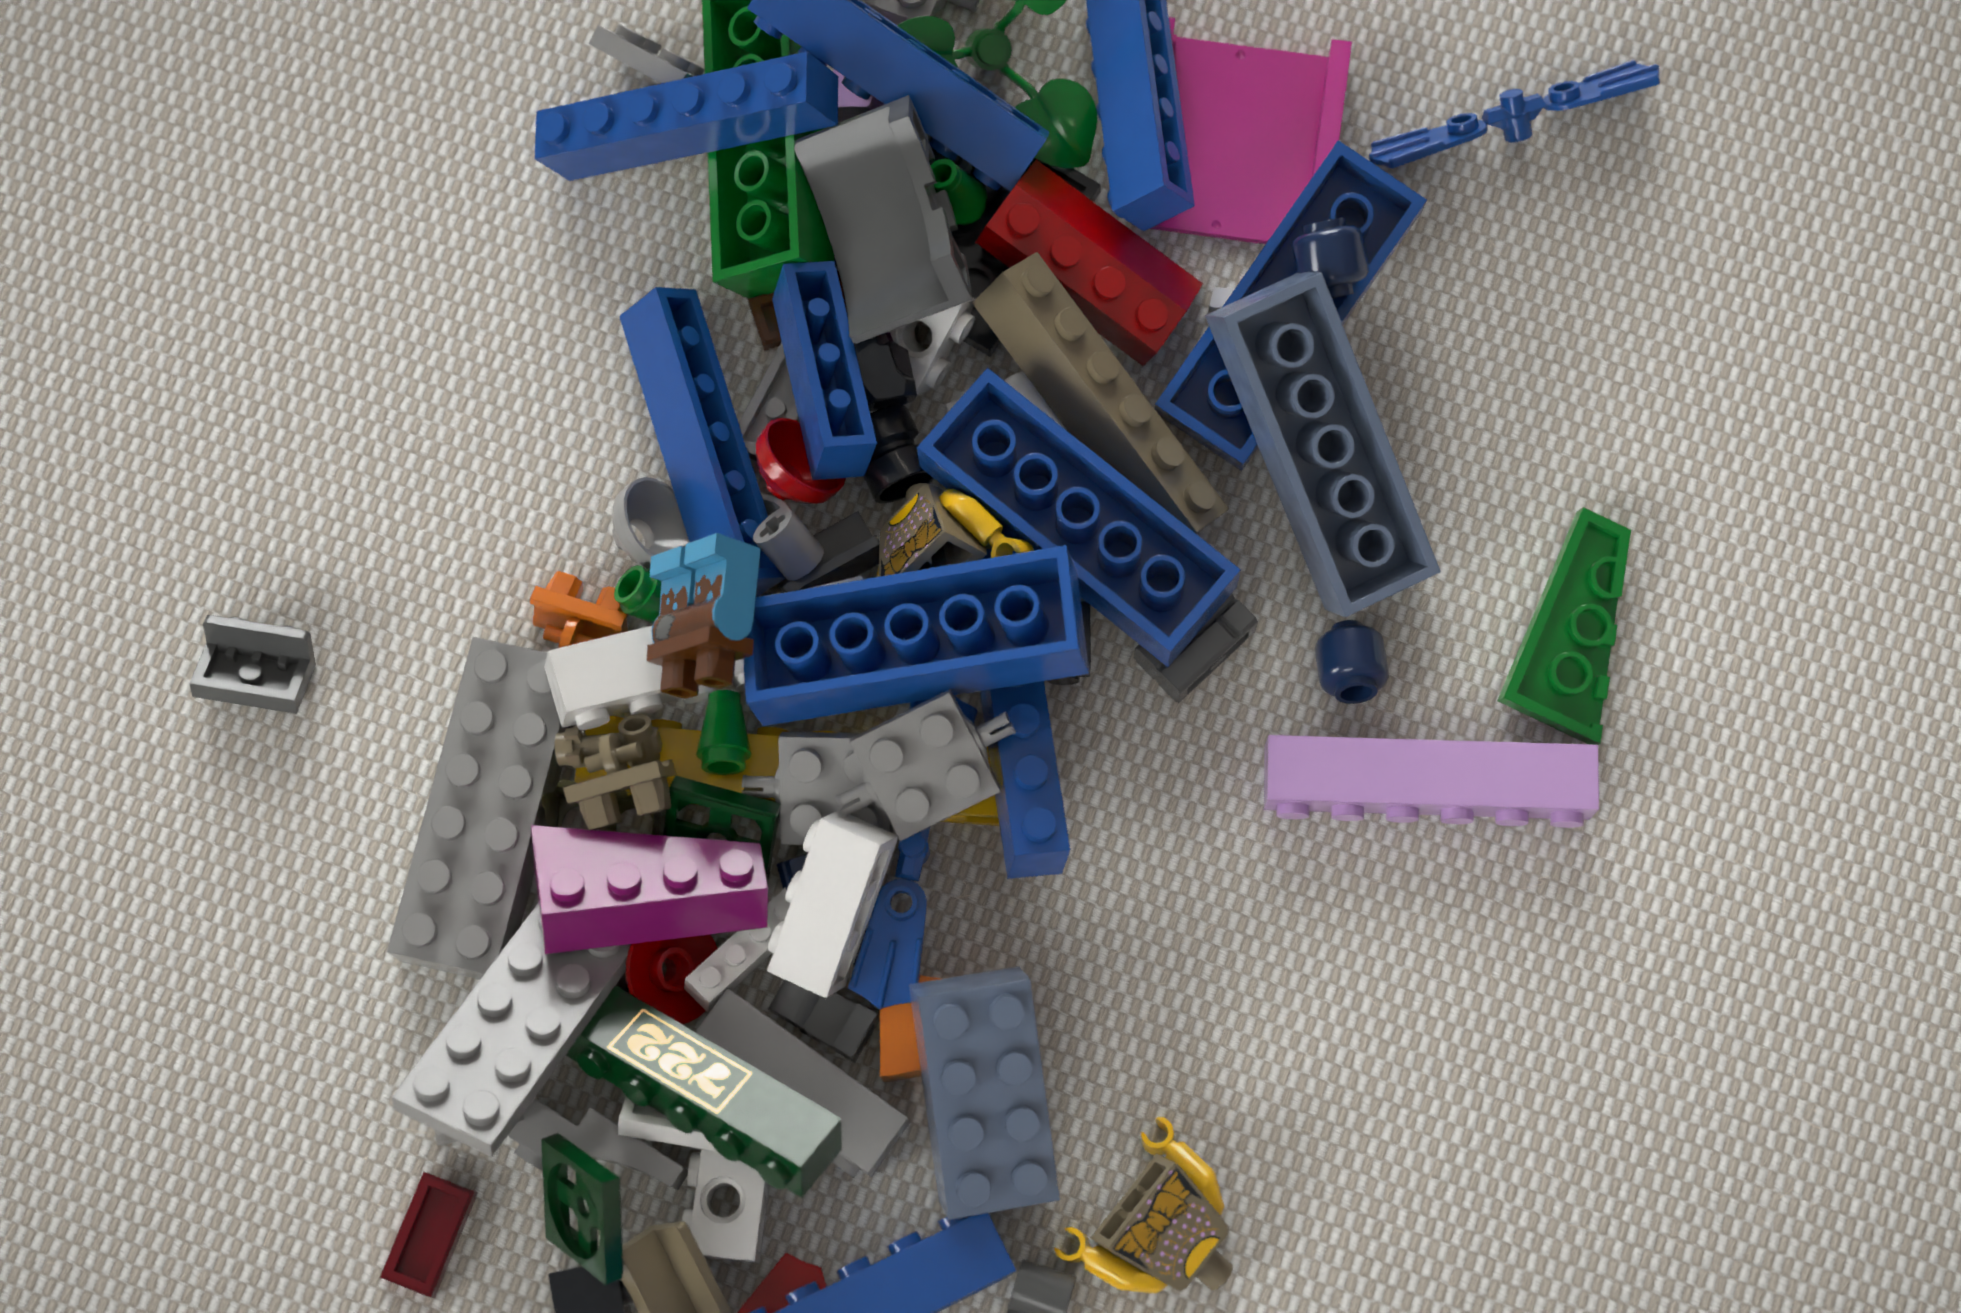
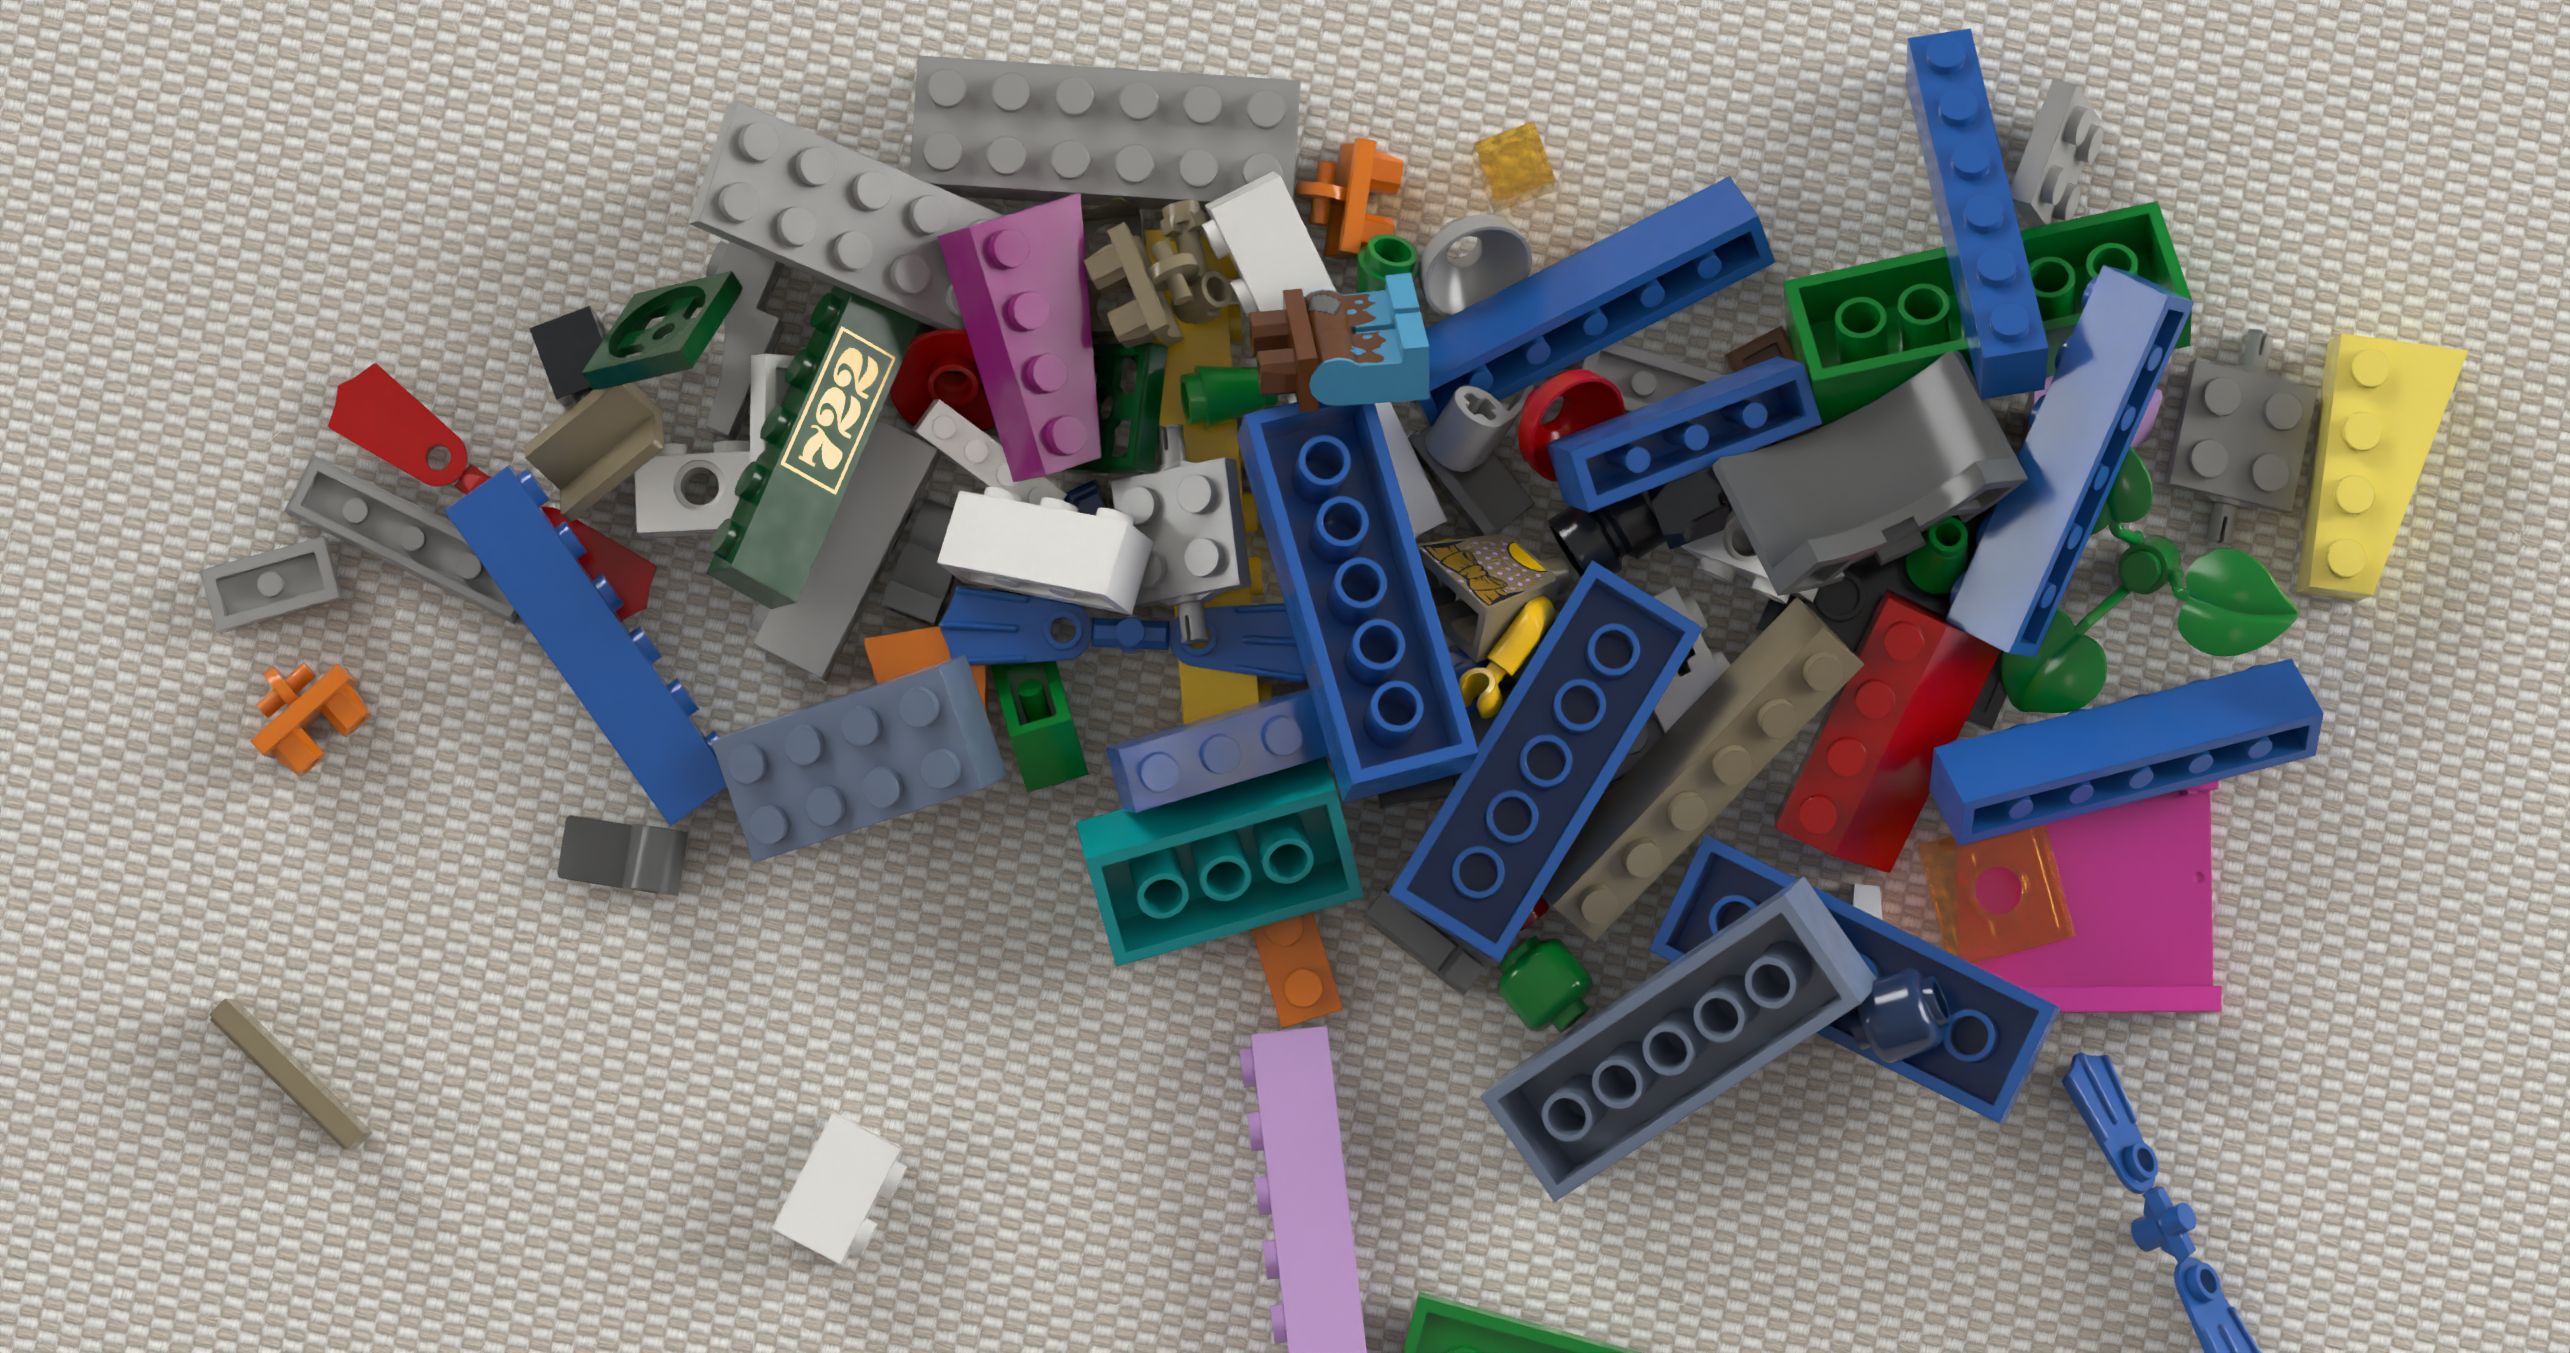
camera: 75 degrees right, 10 degrees up
(428, 1235) = (618, 163): dark red tile -> none
(578, 484) = (1513, 167): none -> clear yellow brick
(925, 764) = (1212, 631): light grey plate -> none
(976, 939) = (1039, 723): none -> green slope
(1120, 802) = (1220, 862): none -> teal brick
(1162, 1226) = (745, 982): torso -> none
(1204, 762) = (1297, 969): none -> orange plate
(1214, 233) = (1981, 935): none -> clear orange piece
(1262, 557) = (1544, 984): none -> green head
(1351, 662) = (1436, 1113): dark blue head -> none
(1353, 1172) = (839, 1190): none -> white brick

